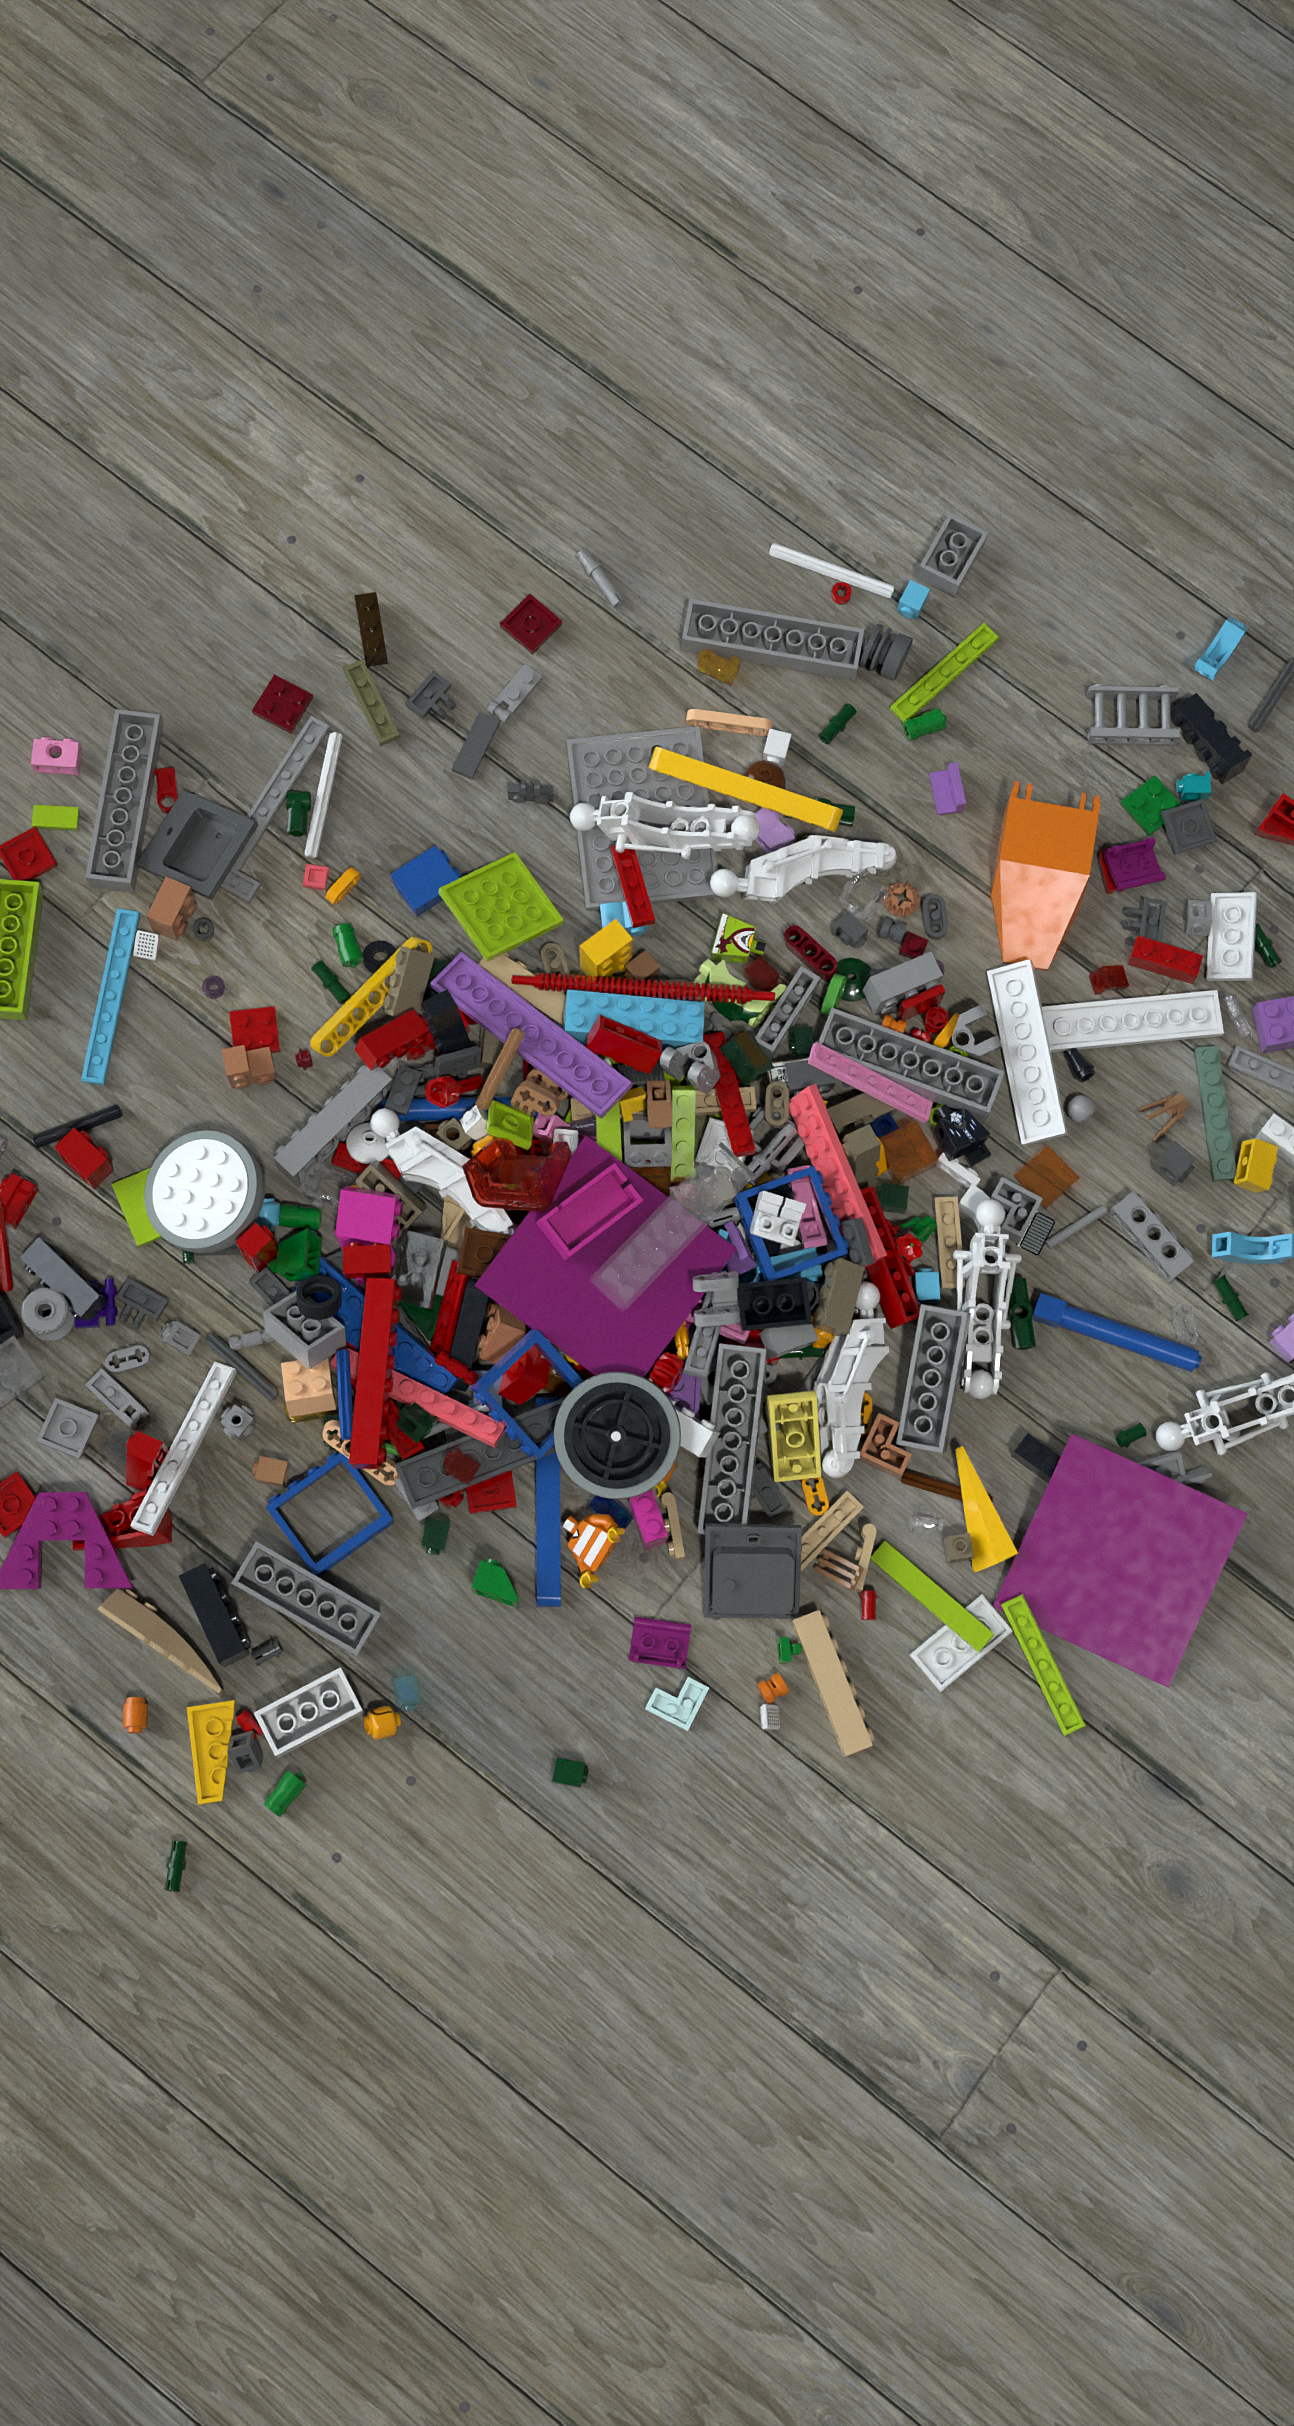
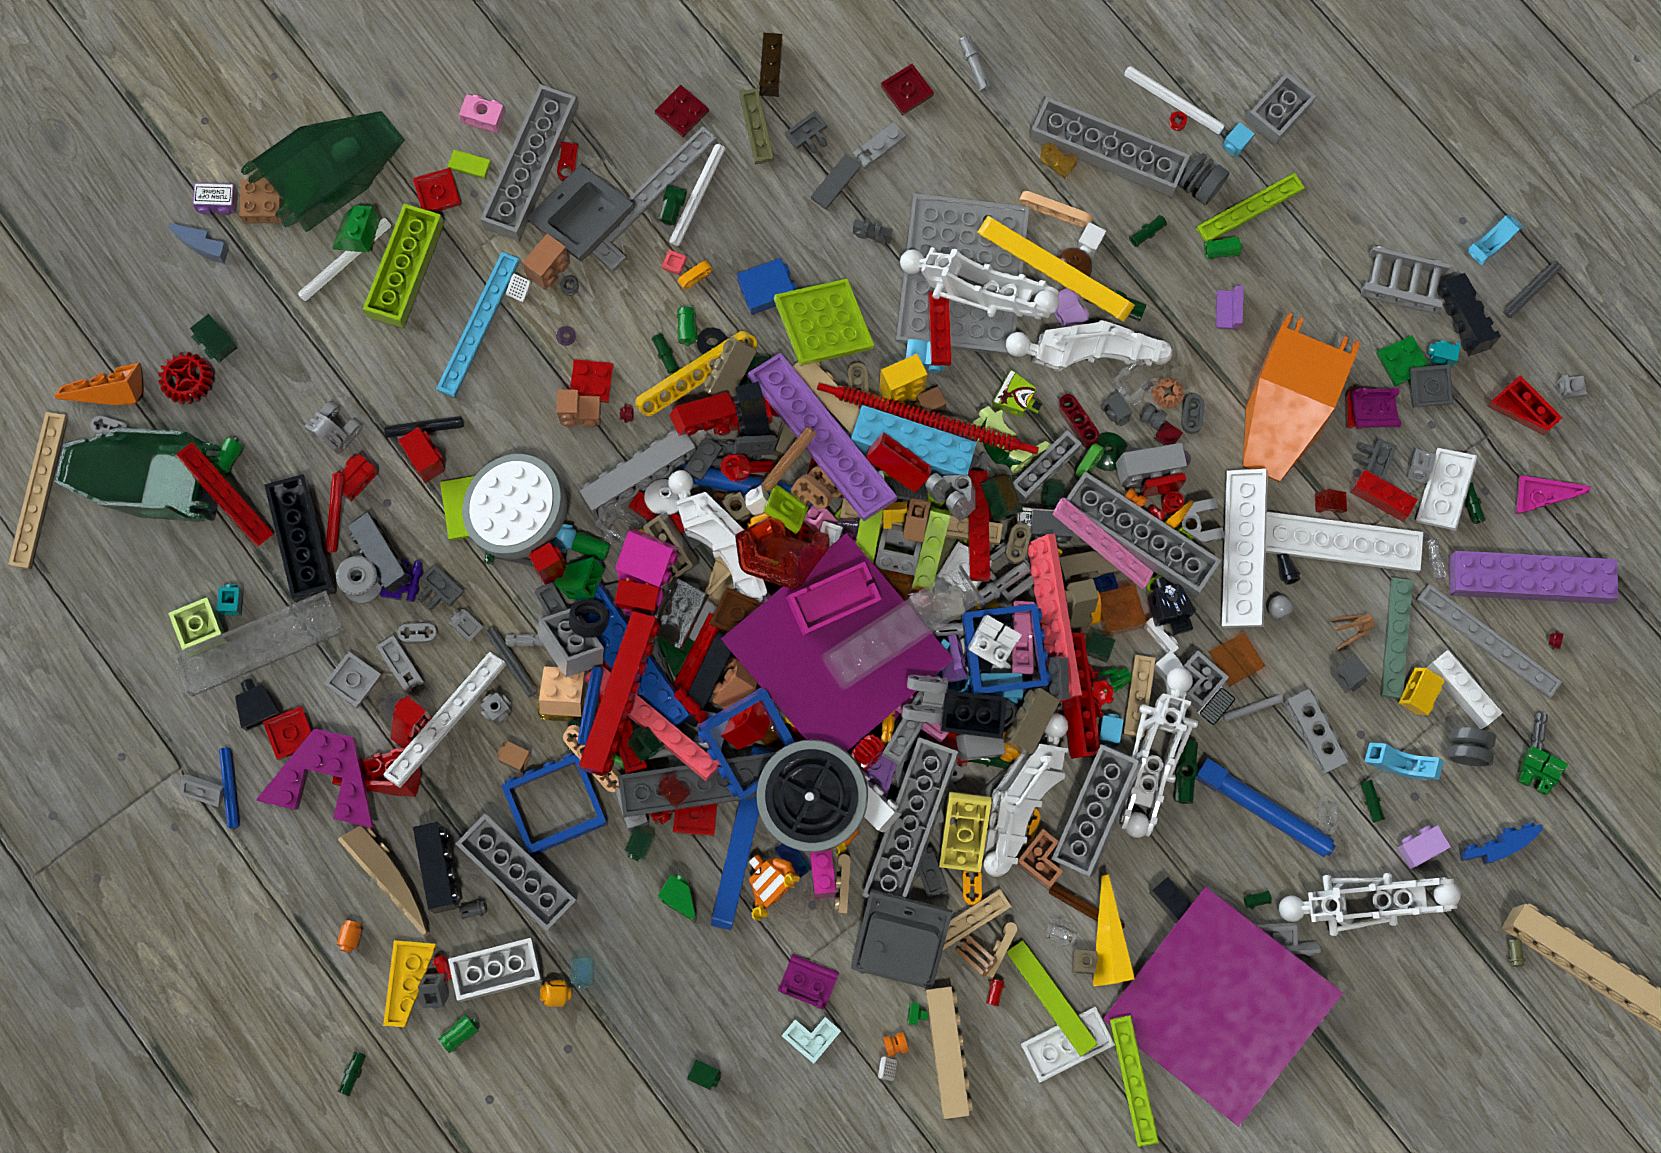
camera: 15 degrees right, 0 degrees up
(761, 975) = (1032, 430): clear red brick -> none

